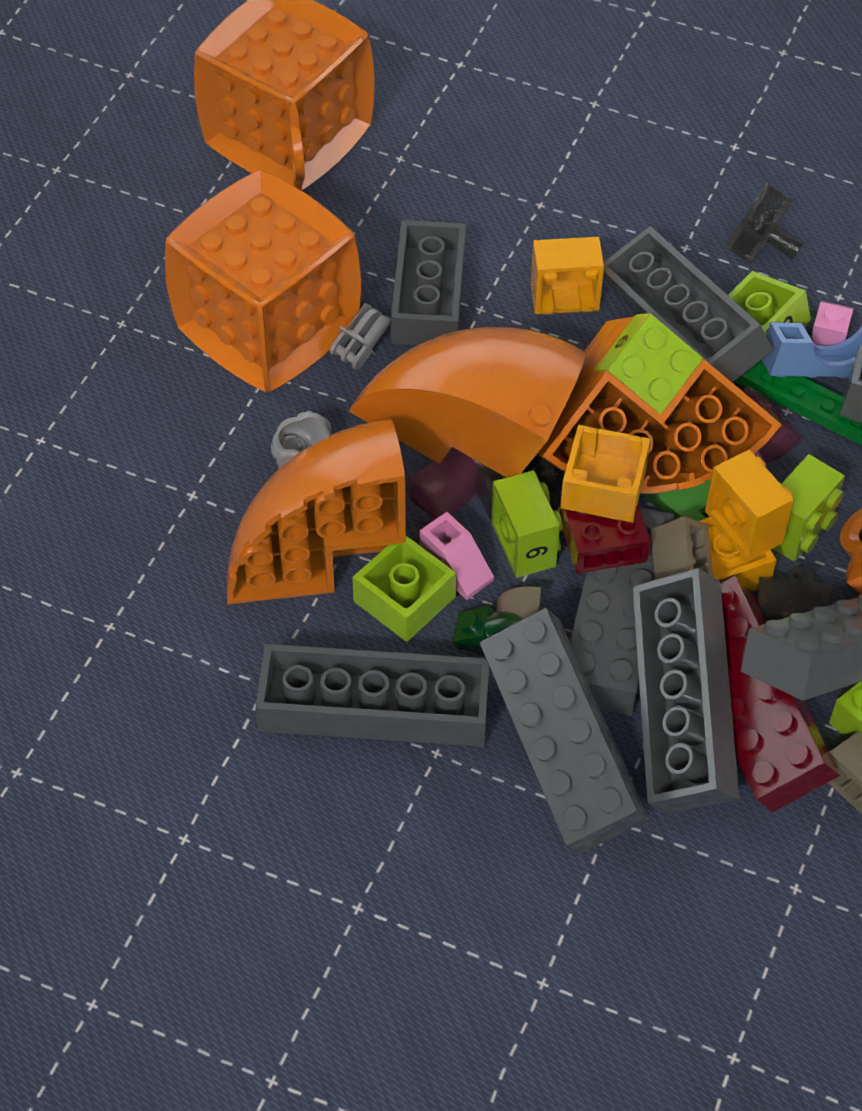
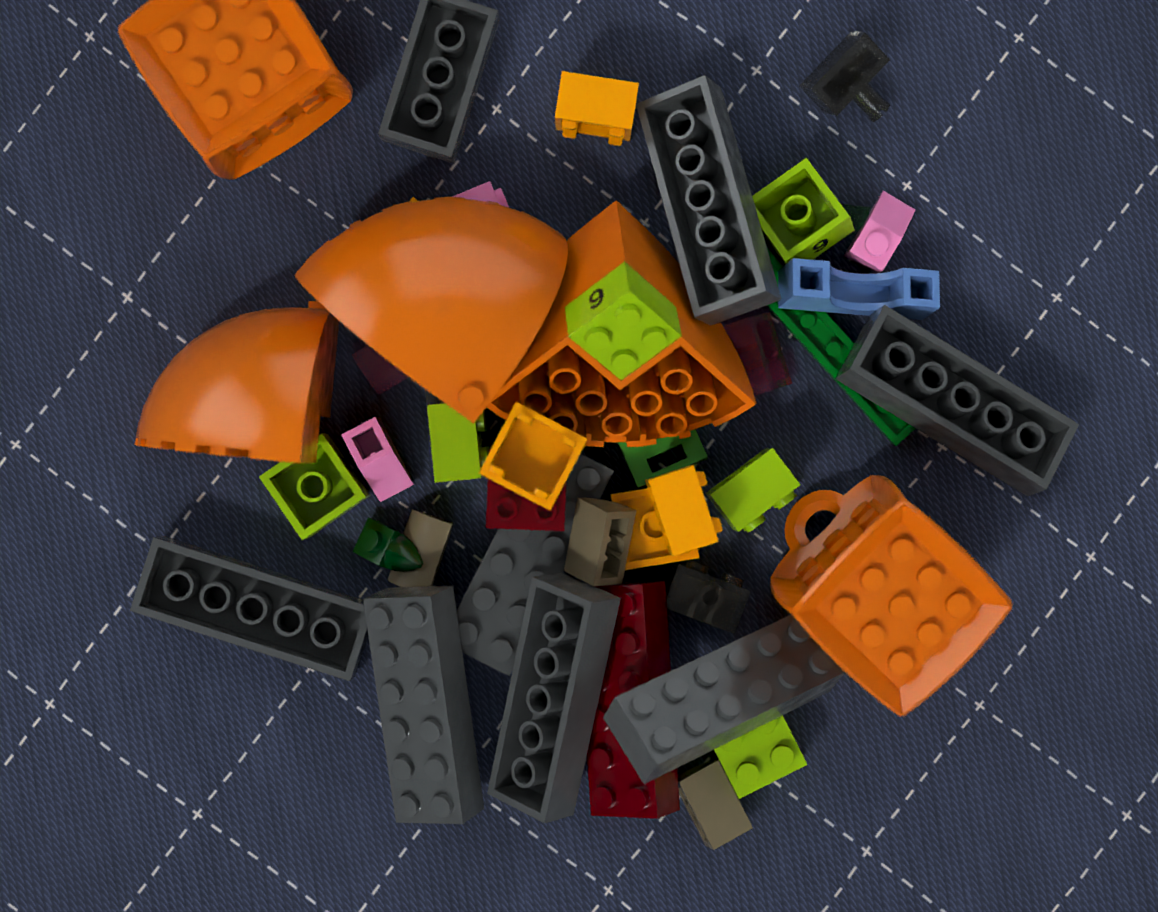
camera: 15 degrees right, 35 degrees up
(297, 434) = (248, 275): light grey hair -> none
(363, 332) = (347, 133): light grey arm -> none

